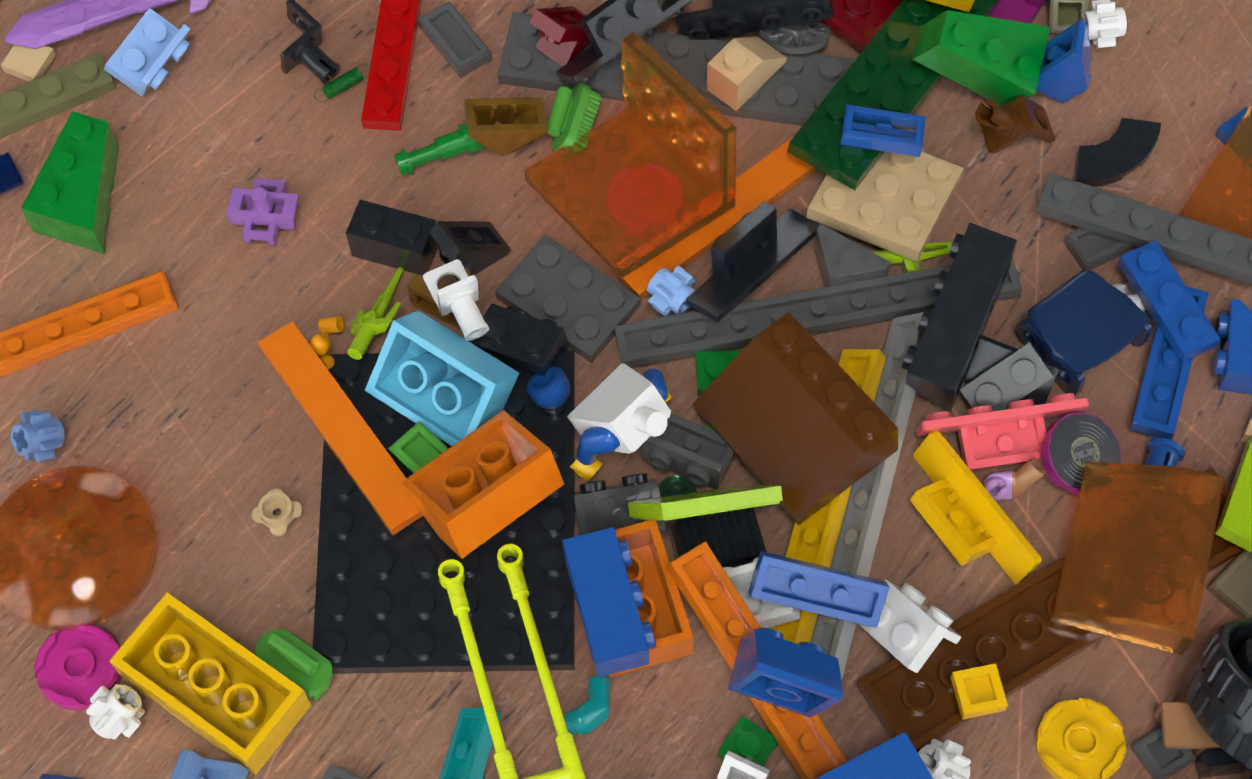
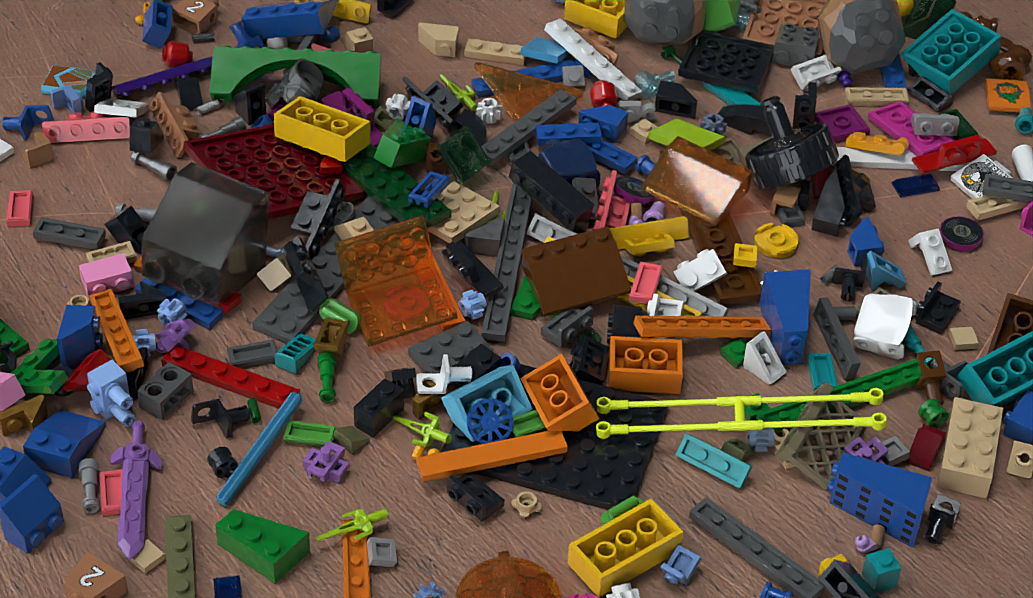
camera: 75 degrees left, 20 degrees down
(112, 342) = (381, 552): none -> light grey plate
(147, 51) = (183, 489): light blue bracket -> none
(154, 295) = (361, 522): none -> lime piece
(218, 80) = (222, 462): none -> black wheel
(260, 430) = (474, 496): none -> black bracket
(263, 115) = (258, 449): none -> dark azure axle
(320, 169) = (308, 433): none -> bright green tile
(328, 224) = (350, 438): none -> olive slope
(392, 397) = (489, 421): none -> blue wheel
(469, 77) = (294, 364): none -> teal slope
(560, 32) = (289, 298): dark red slope -> none
(593, 711) = (700, 410): teal arm -> none
(608, 601) = (654, 359): blue brick -> none
(619, 416) = (546, 329): white torso -> none
(705, 502) = (609, 316): lime tile -> none
(786, 673) = (718, 307): blue slope -> none
(818, 589) = (677, 284): plate -> none
(826, 539) = (645, 282): none -> coral tile
(1002, 150) = (463, 154): none -> clear green slope
(1035, 510) = (655, 213): none -> lavender cone
(1150, 76) = (443, 101): none -> black bracket
(1172, 160) = (489, 111): none -> white gear
(1198, 110) = (464, 96): none -> lime piece

